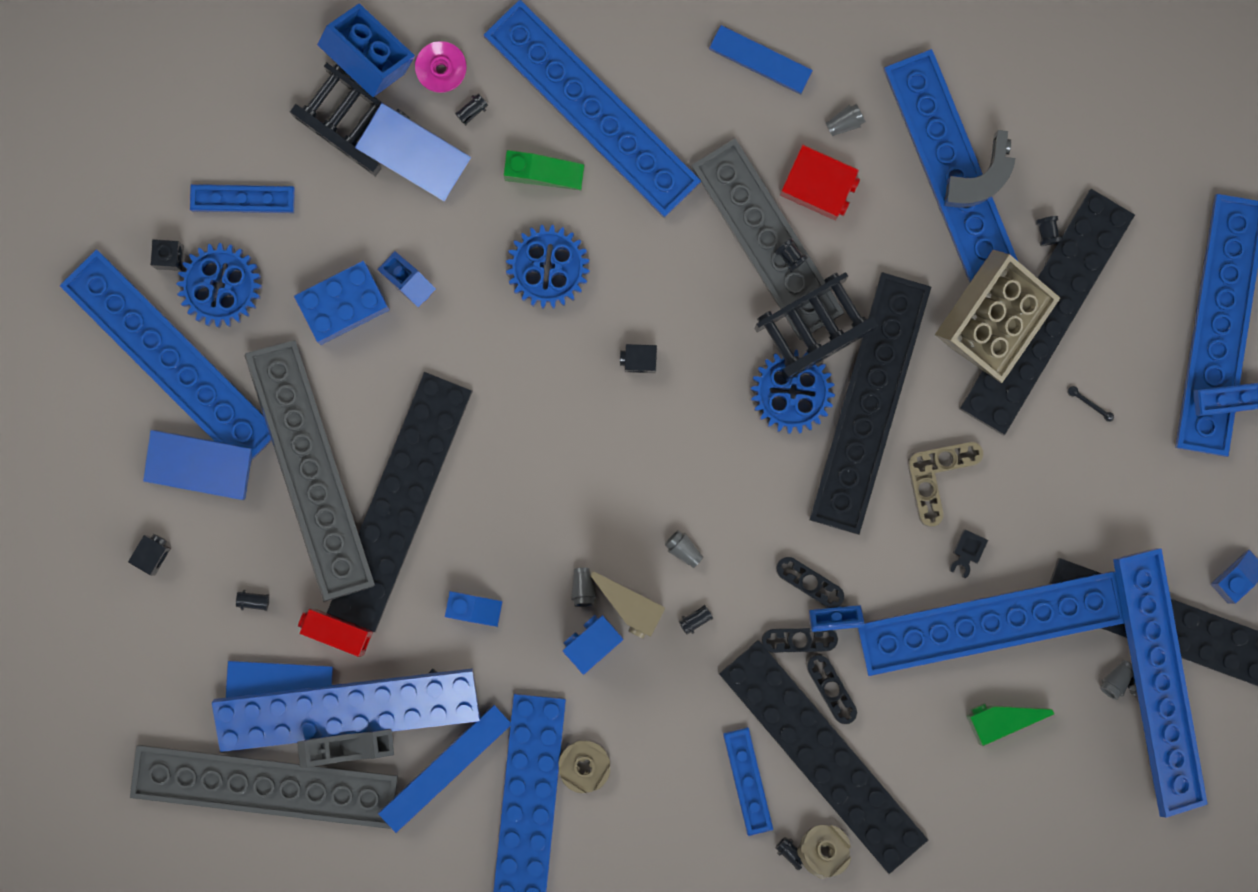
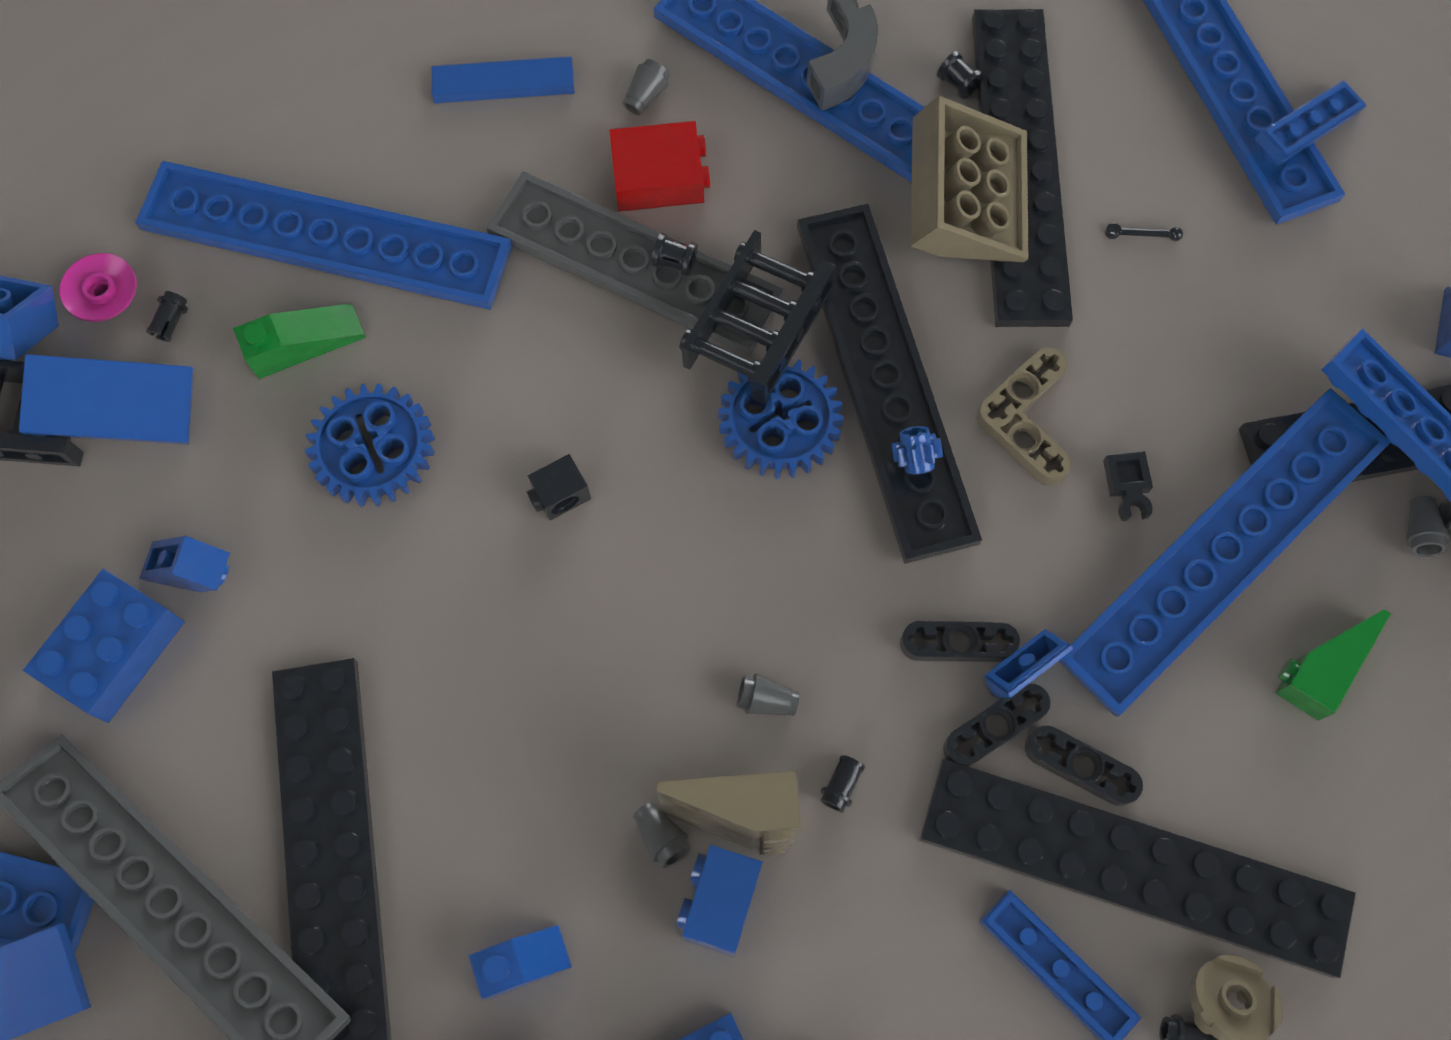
camera: 25 degrees left, 15 degrees down
(854, 463) = (917, 450): none -> blue gear

